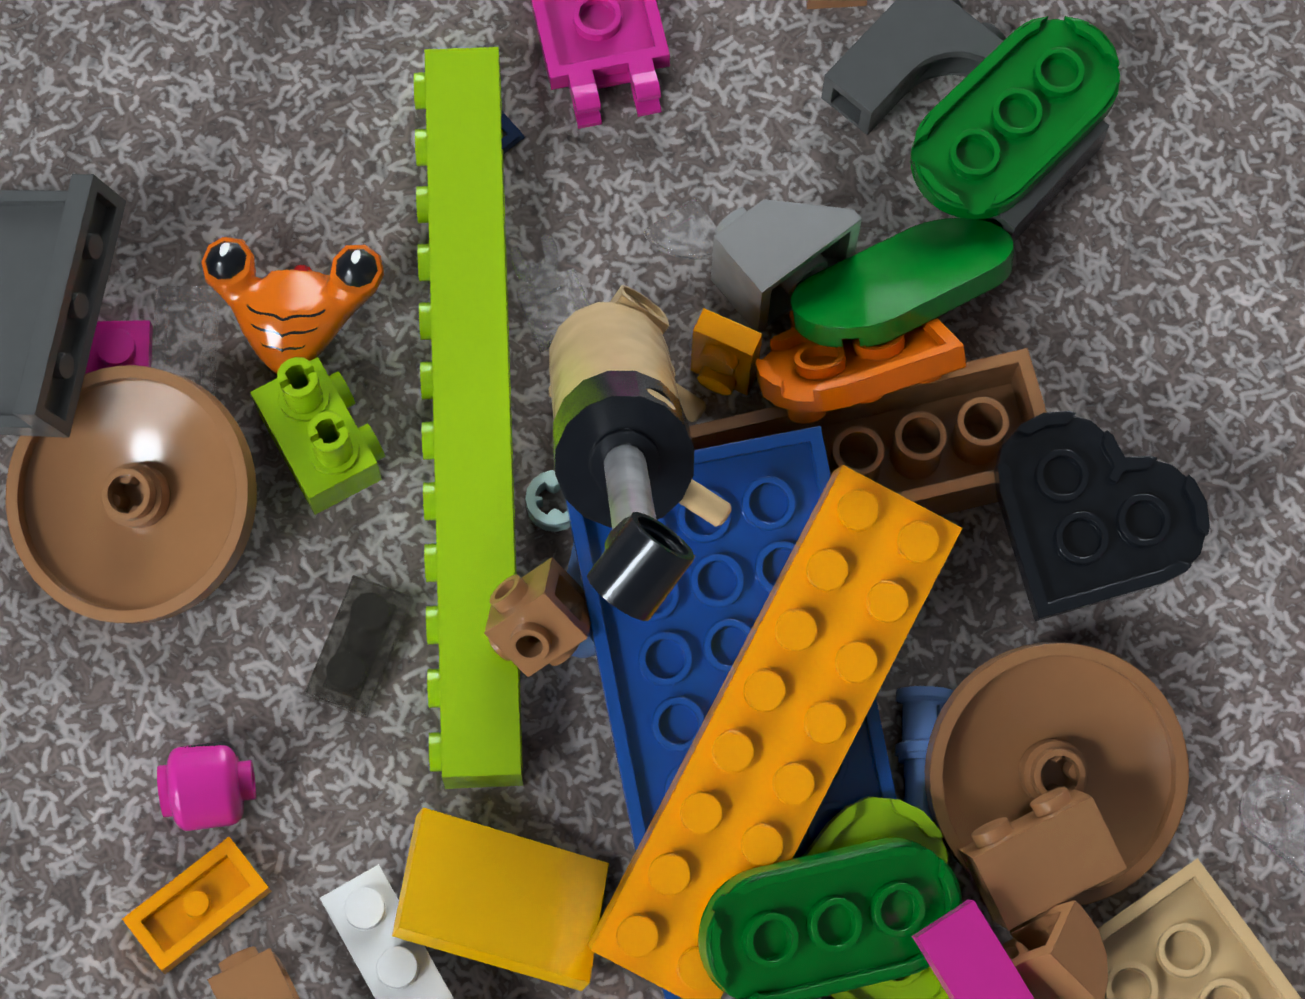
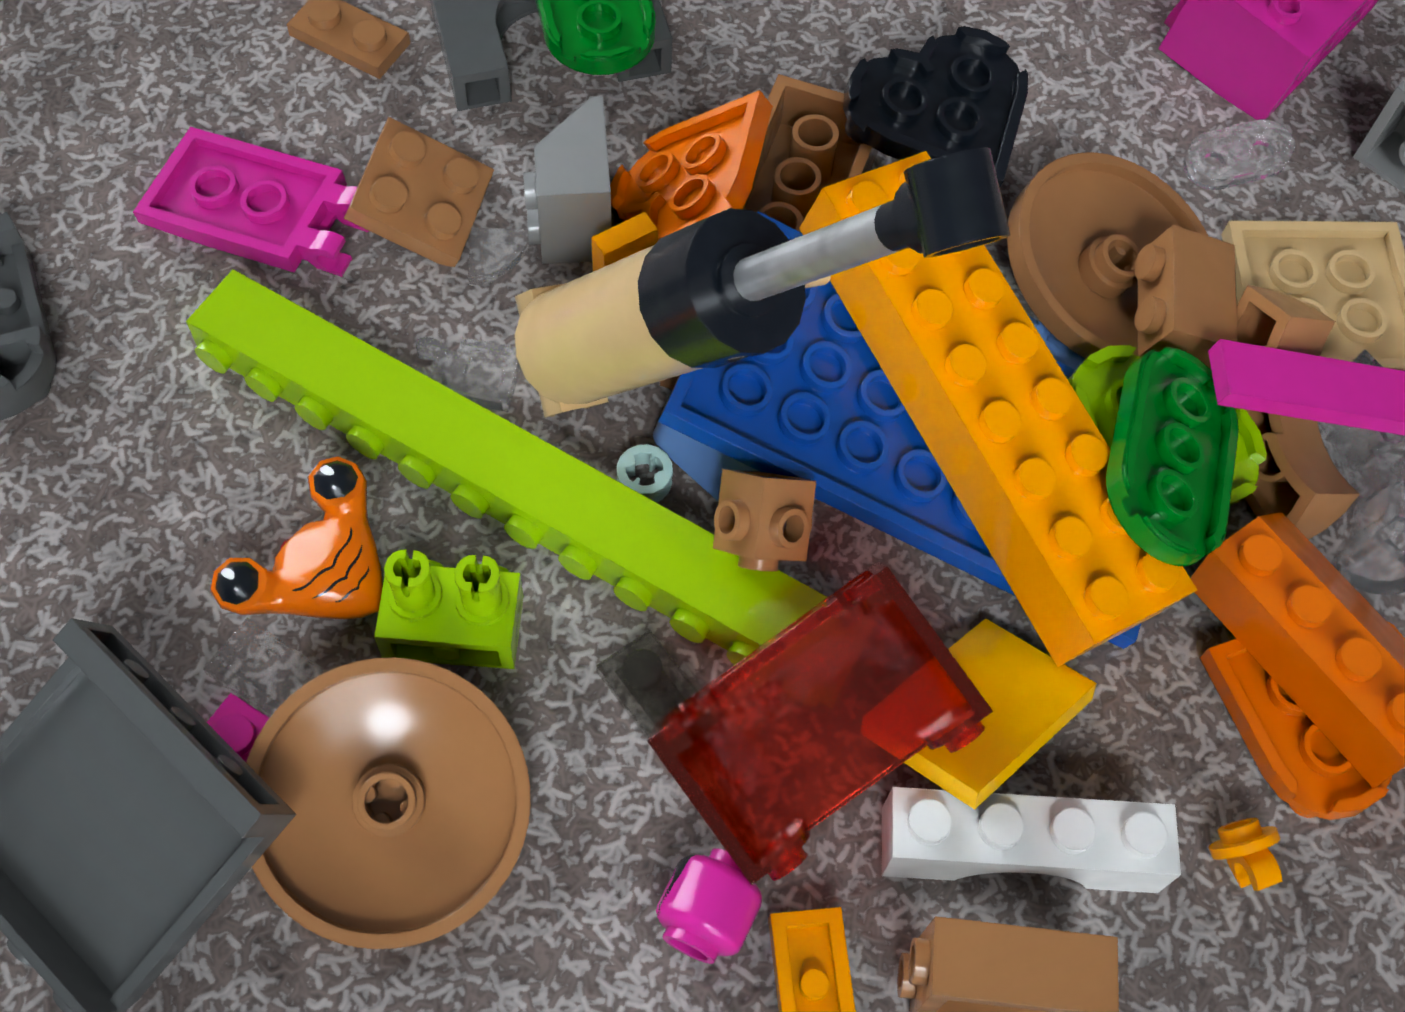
camera: 60 degrees left, 10 degrees down
(379, 763) = (816, 721): none -> clear red windscreen
(694, 133) = (419, 193): none -> medium nougat plate
(902, 282) = (661, 125): green tile -> none

